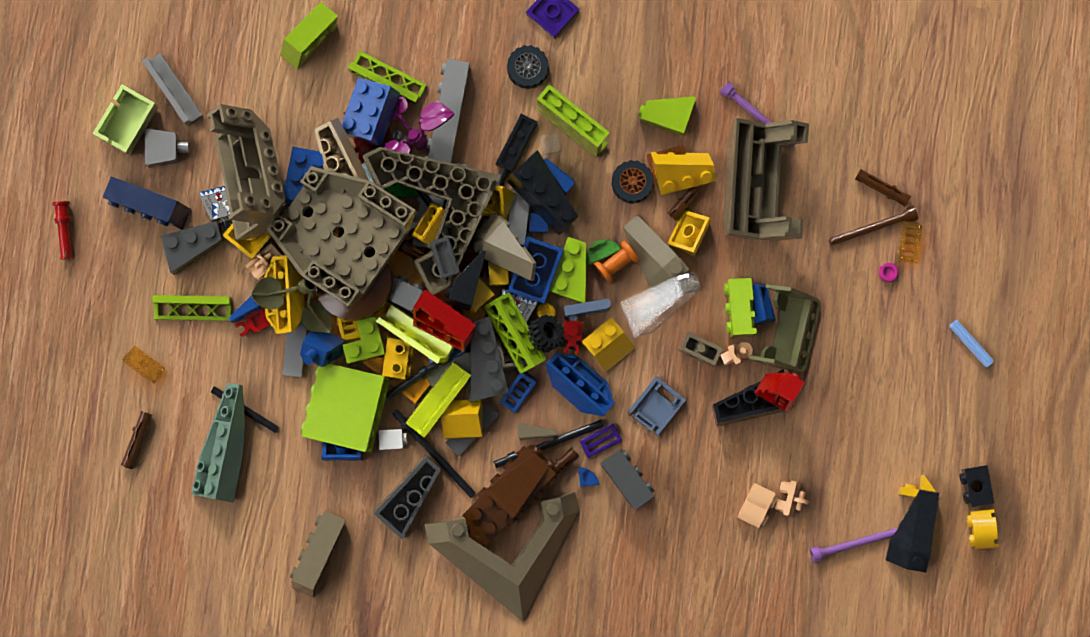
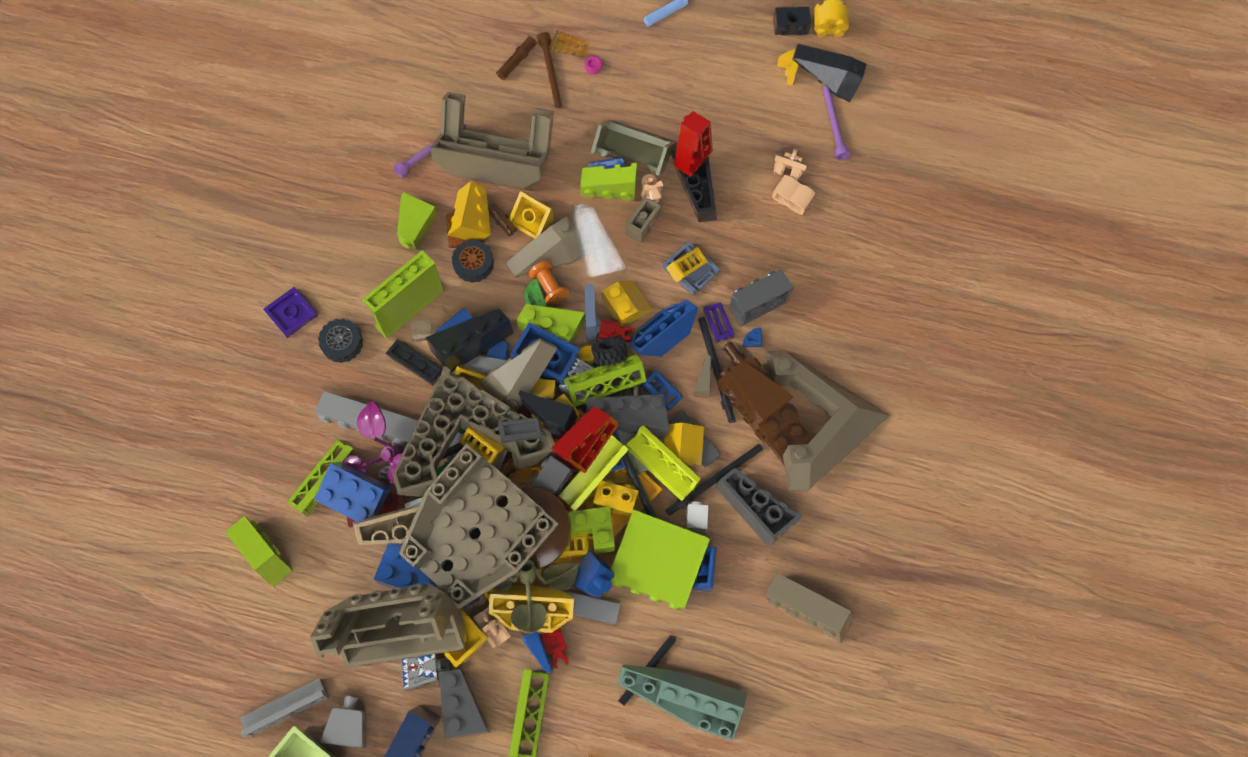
camera: 85 degrees left, 15 degrees down
(640, 394) = (678, 271): none -> yellow slope

